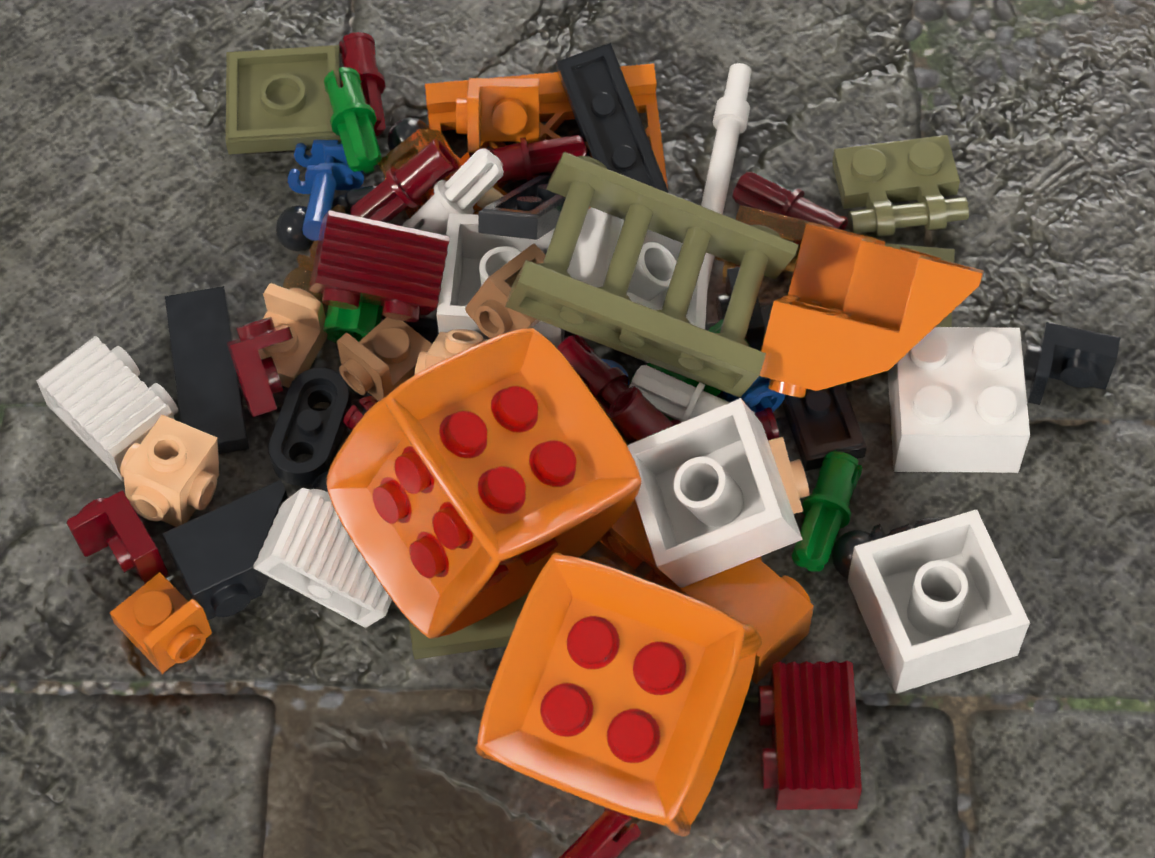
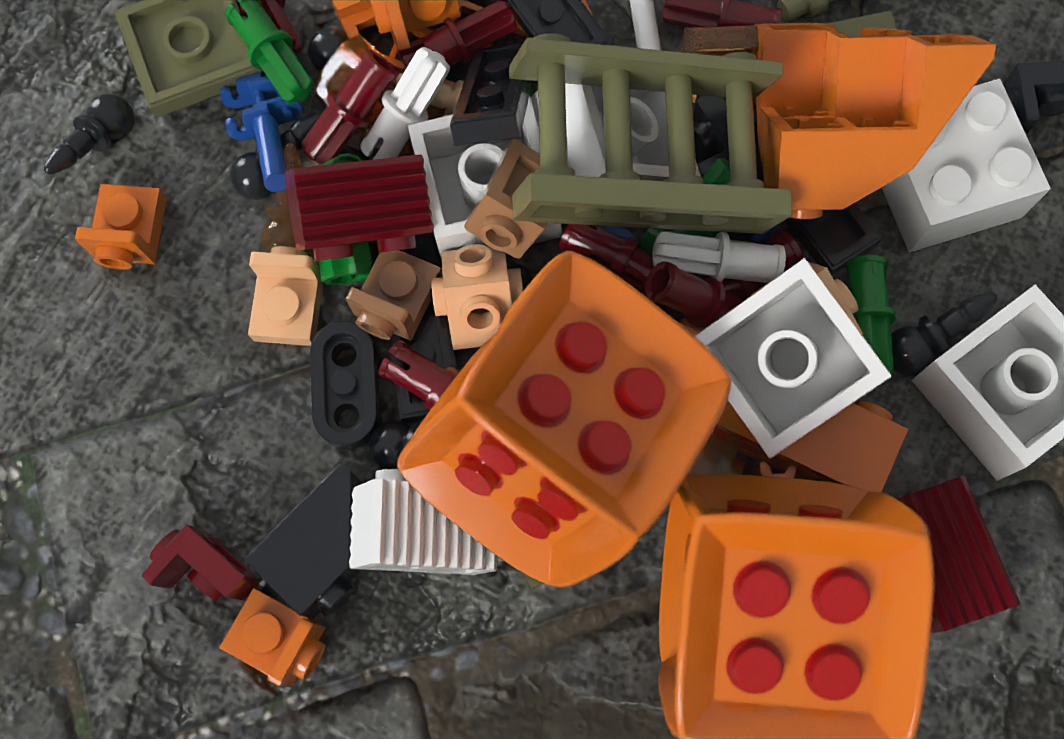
camera: 15 degrees left, 15 degrees up
(105, 400) = (137, 429): white brick -> none
(164, 237) = (124, 226): none -> orange bracket
(171, 472) = (226, 485): light nougat brick -> none
(182, 144) = (105, 120): none -> black bar
(204, 368) = (219, 358): black tile -> none
(257, 375) = (275, 352): dark red bracket -> none

